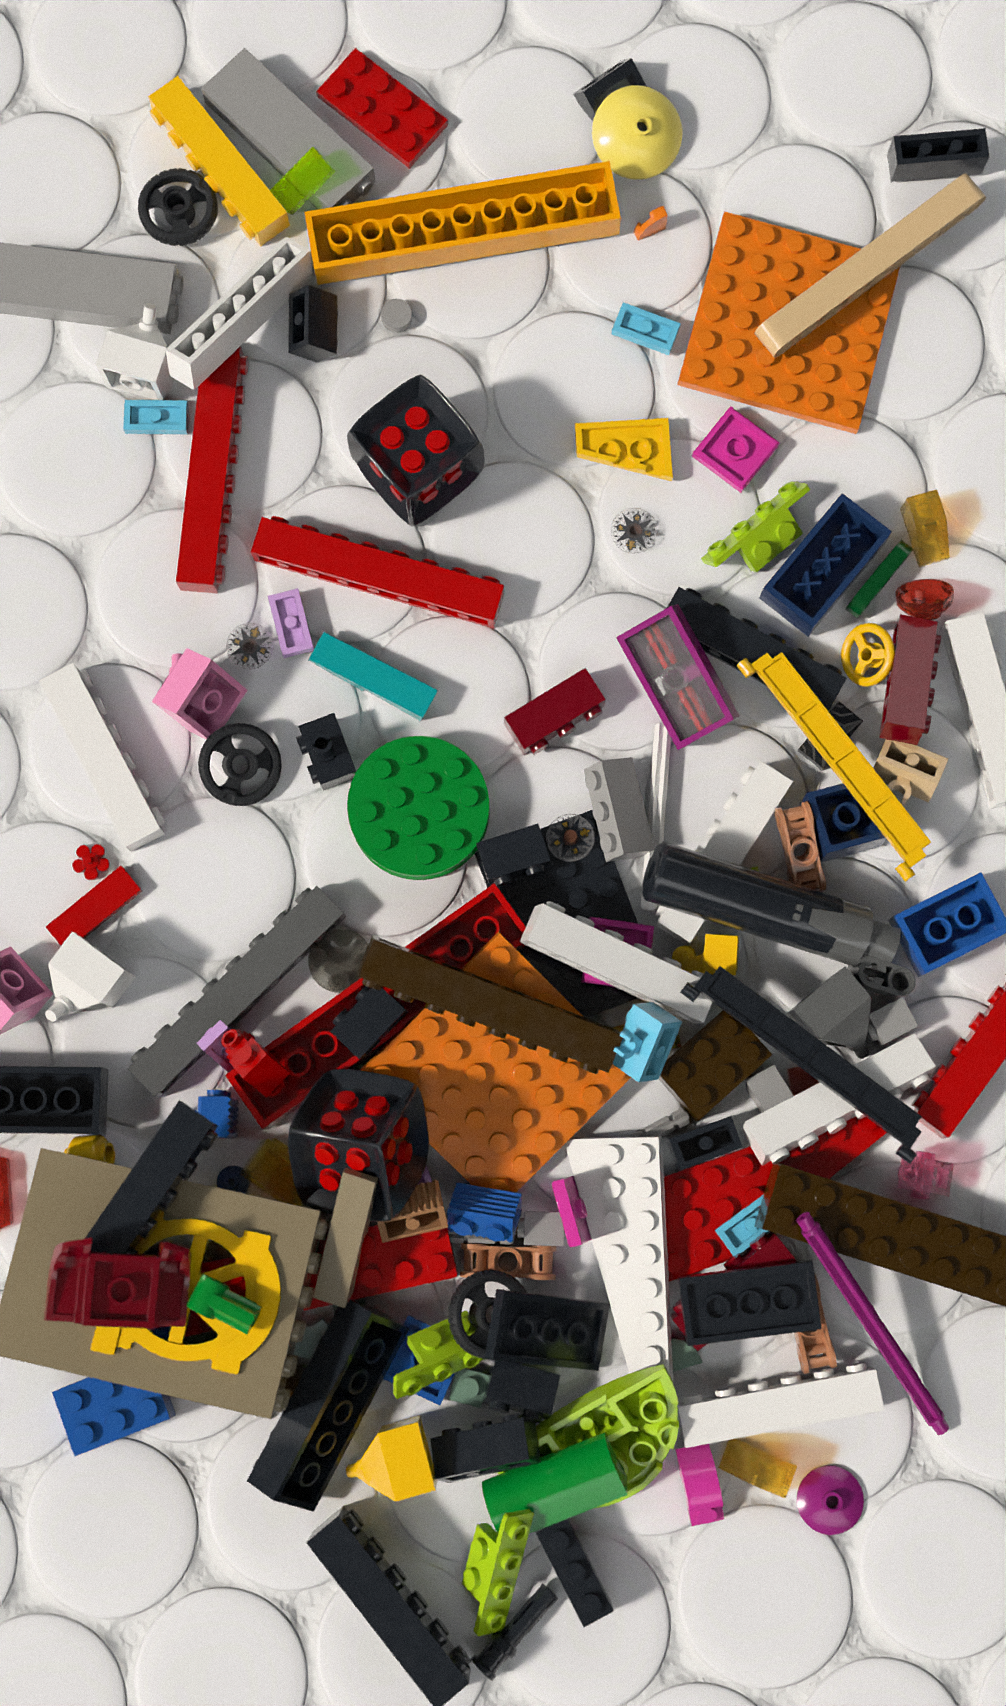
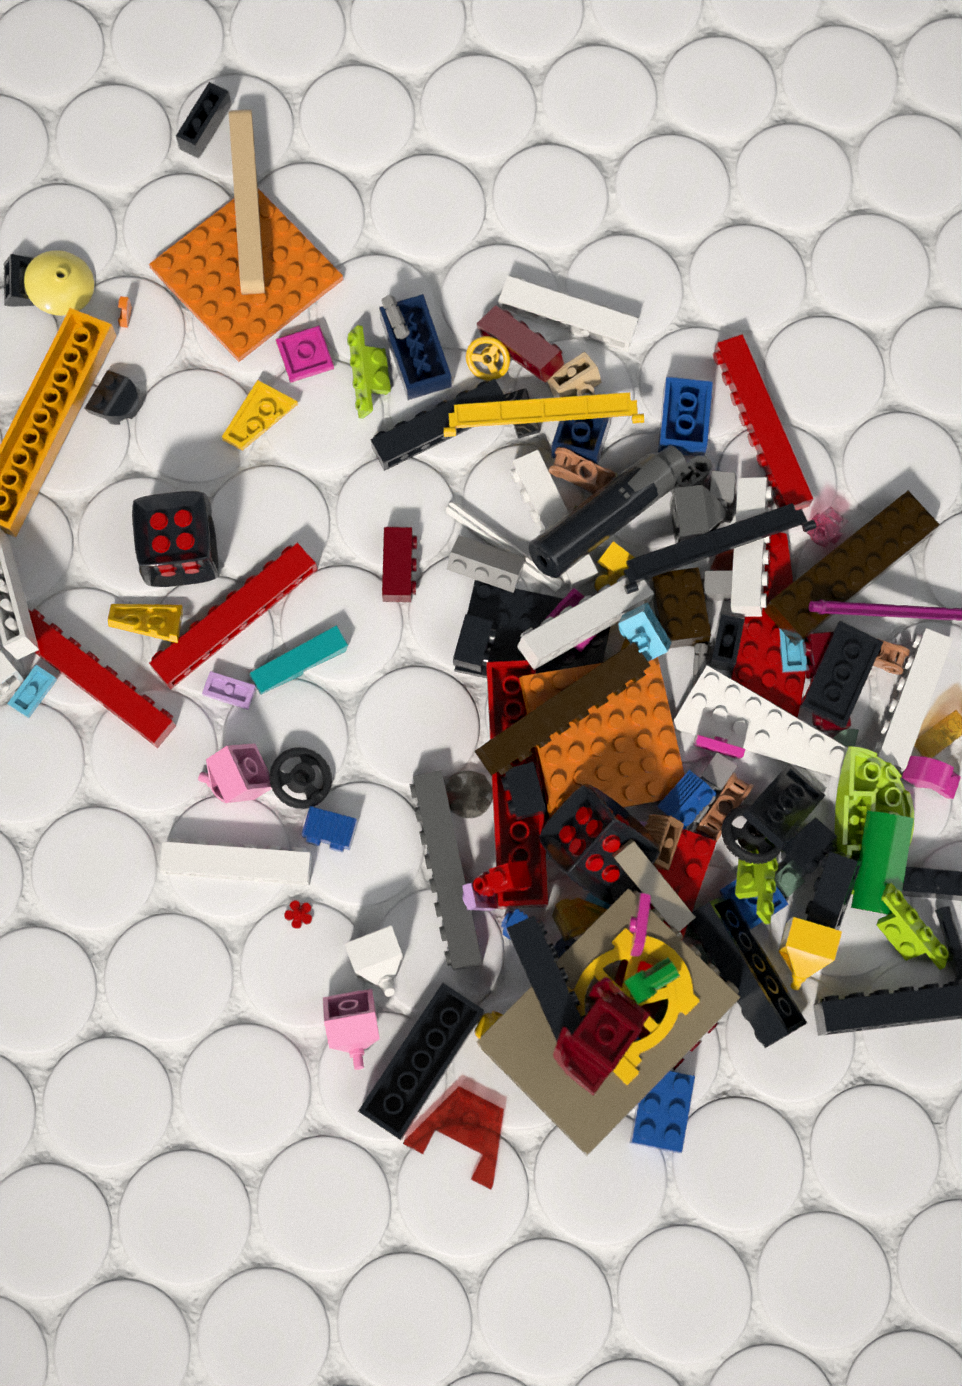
camera: 60 degrees left, 5 degrees down
(95, 906) = (331, 930): red tile -> none
(203, 833) = (329, 828): none -> blue brick
(249, 646) = (226, 725): clear piece -> none
(273, 1250) = (638, 924): none -> dark pink plate
(312, 484) = (148, 619): none -> yellow wing
(313, 323) = (42, 553): black brick -> none
(327, 751) = (329, 719): black brick -> none
(396, 315) = (71, 501): light grey tile -> none
(418, 807) = (403, 684): green wheel -> none
(543, 282) = (115, 398): none -> black slope
(570, 837) = (484, 603): piece -> none
(634, 530) = (314, 445): clear piece -> none
(646, 328) = (190, 357): medium azure plate -> none
(677, 676) = (428, 475): clear brick -> none
(840, 518) = (395, 316): none -> light grey axle
(879, 579) = (444, 323): dark green beam -> none
(924, 598) = (475, 303): clear red piece -> none
(926, 527) = (431, 275): clear yellow slope -> none

